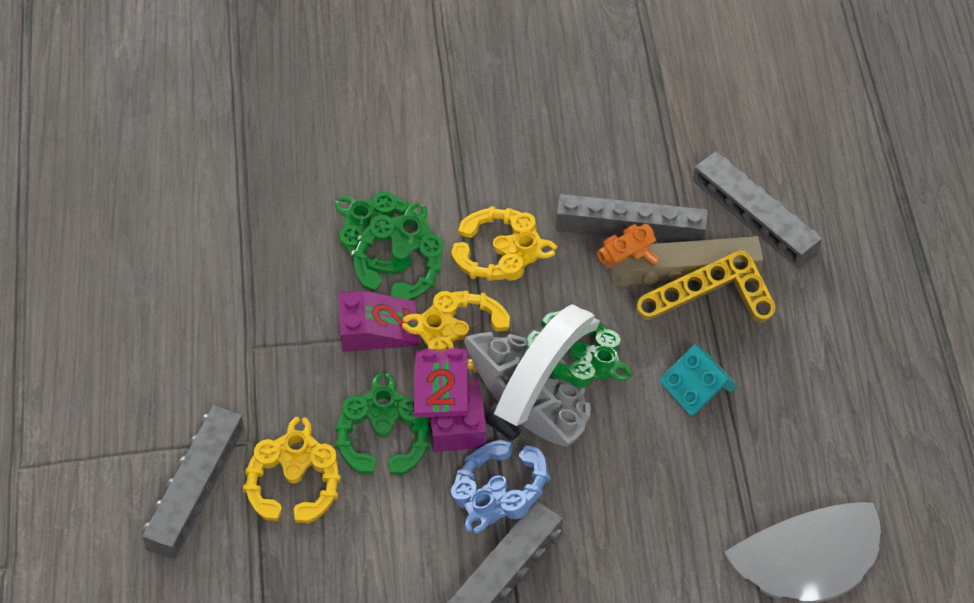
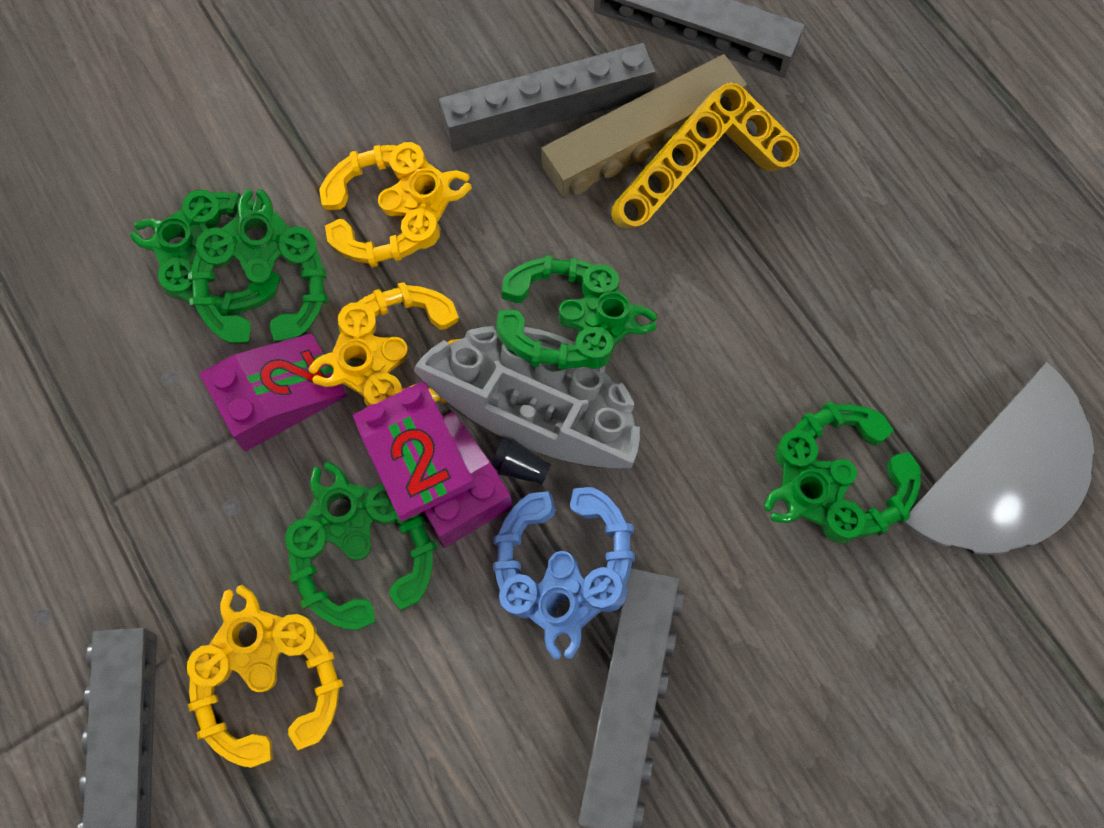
camera: 25 degrees left, 15 degrees up
(541, 360) = (544, 361): white arch -> none
(633, 243) = (575, 132): orange brick -> none
(688, 509) = (829, 480): none -> green piece
(696, 379) = (743, 289): teal bracket -> none

